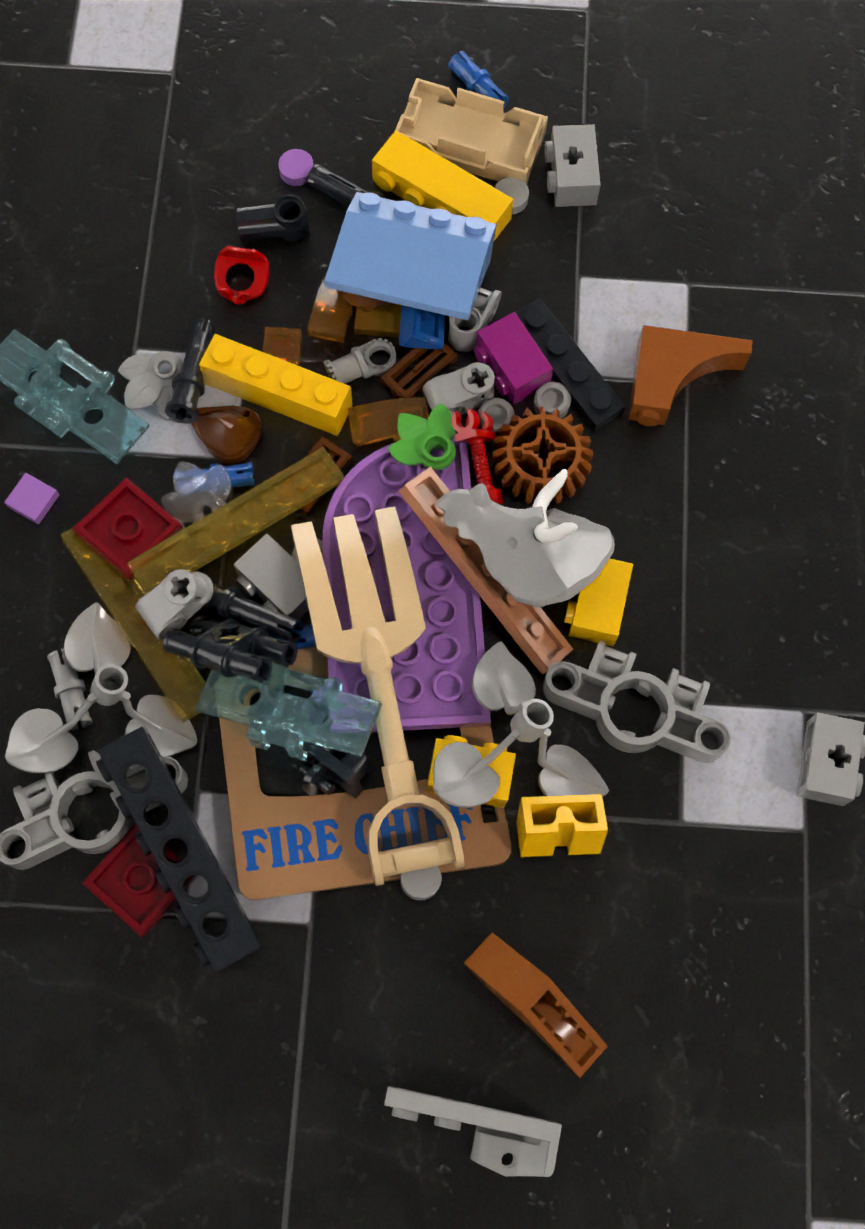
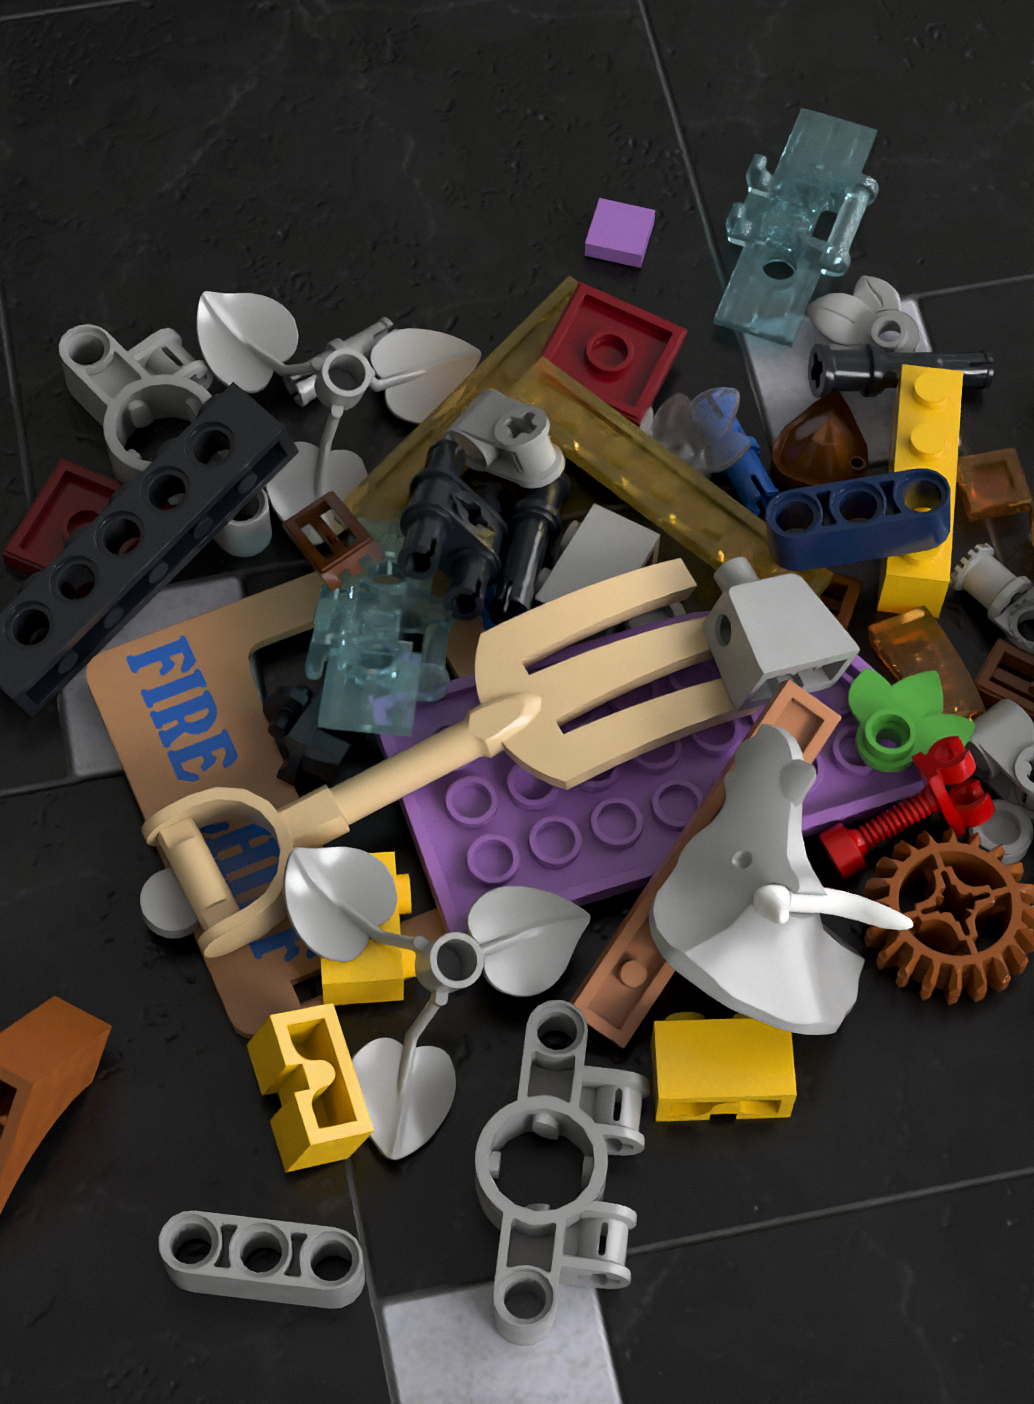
camera: 75 degrees right, 10 degrees down
(240, 715) = (344, 556): none -> reddish brown tile
(302, 400) = (882, 499): none -> dark blue beam
(362, 489) = (773, 634): none -> light grey torso
(665, 863) = (238, 1236): none -> light grey beam

